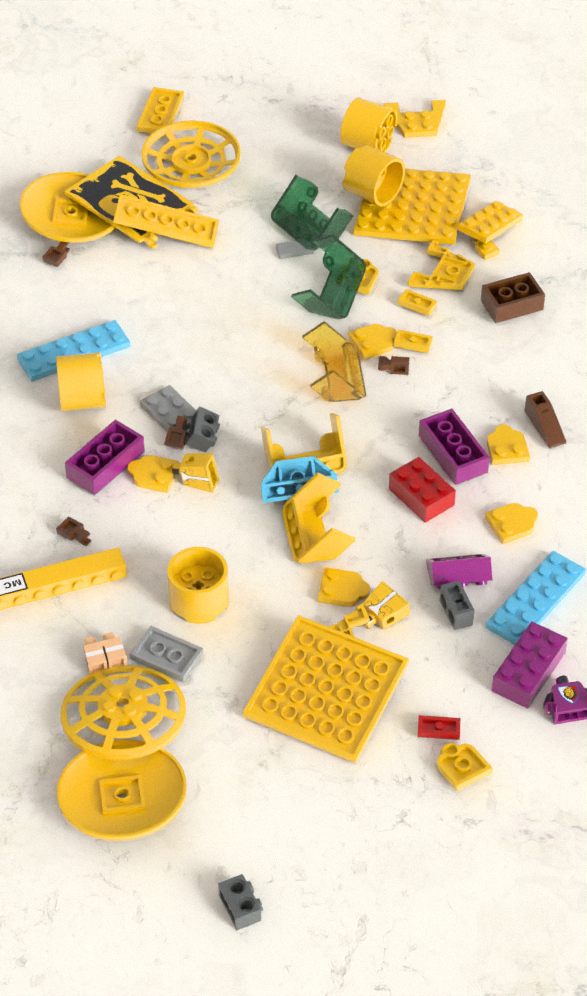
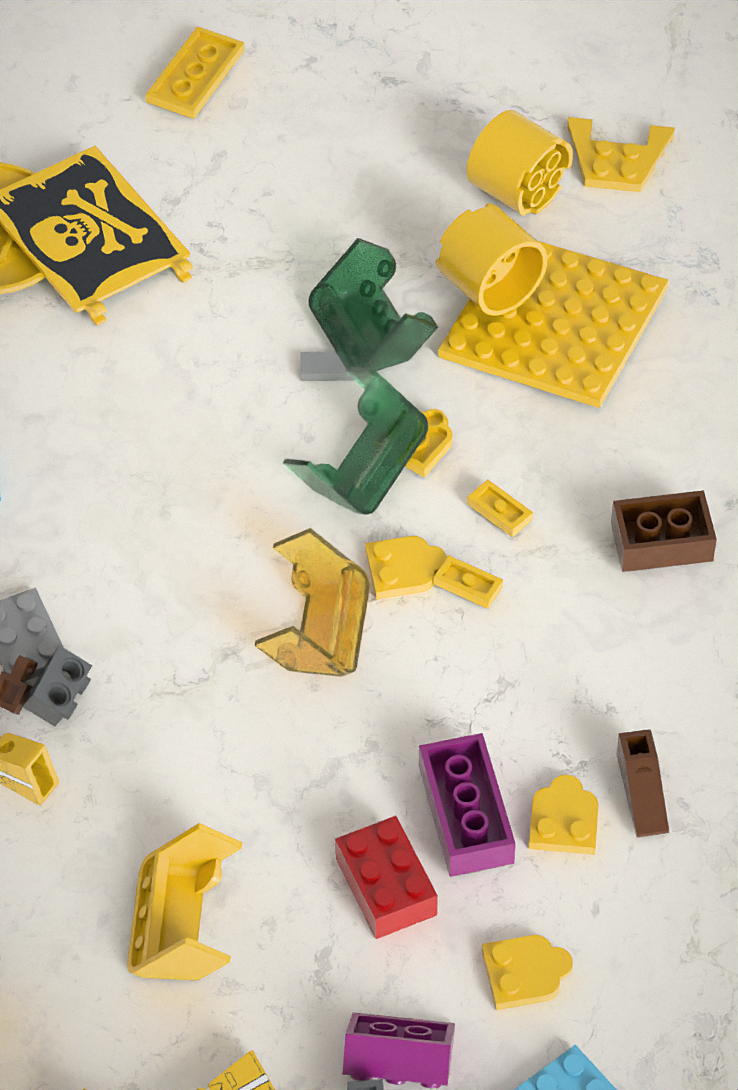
camera: 15 degrees right, 5 degrees up
(166, 221) = (129, 281): yellow plate -> none
(182, 155) = (213, 155): yellow dish -> none
(290, 475) = (167, 809): medium azure wedge -> none
(331, 451) = (209, 786): yellow windscreen -> none
(342, 588) = (190, 1039): yellow plate -> none
(397, 364) = (423, 623): reddish brown plate -> none
(451, 272) = (575, 460): yellow wing -> none
(486, 250) = (652, 423): yellow plate -> none
(490, 221) = (673, 376): yellow plate -> none

